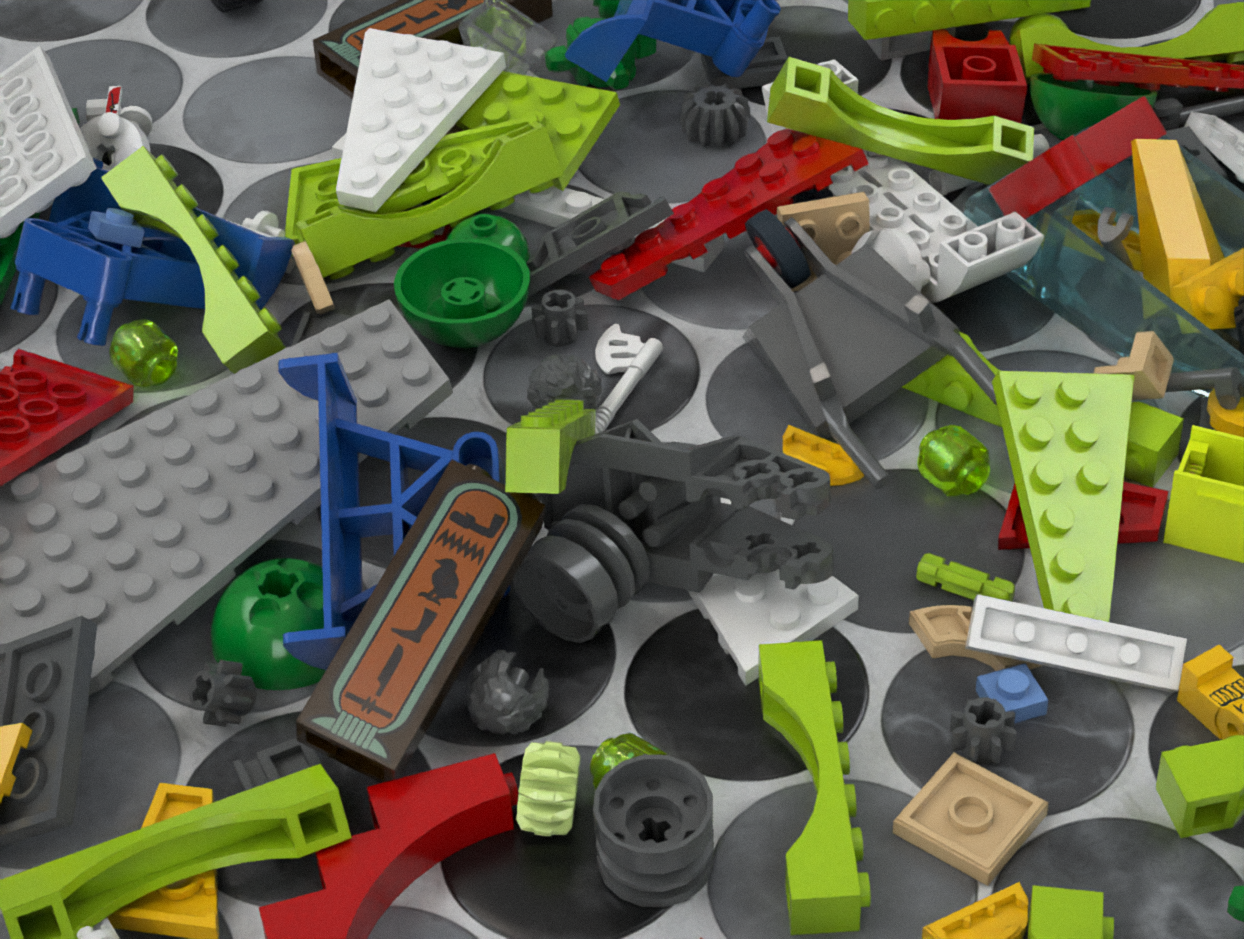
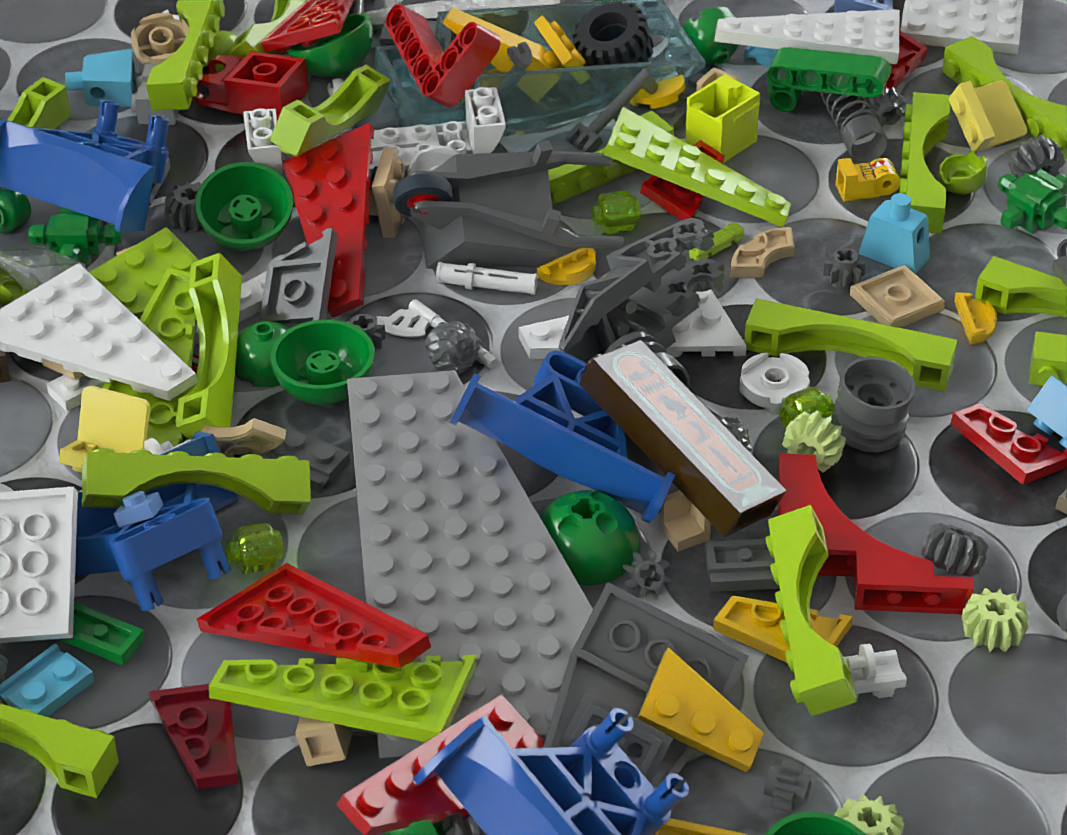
camera: 70 degrees left, 0 degrees up
(253, 191) = (109, 422): none -> light yellow bracket
(543, 444) = (614, 318): lime arch -> none
(695, 697) = (768, 394): none -> white plate
(703, 136) = (244, 206): none -> green piece
(734, 375) = (473, 276): none -> white pin
(1015, 690) = (812, 253): medium blue plate -> none
(1076, 643) = (802, 211): white plate -> none
(1089, 748) = (897, 235): none -> medium azure torso
(1149, 364) = (606, 110): tan panel -> none

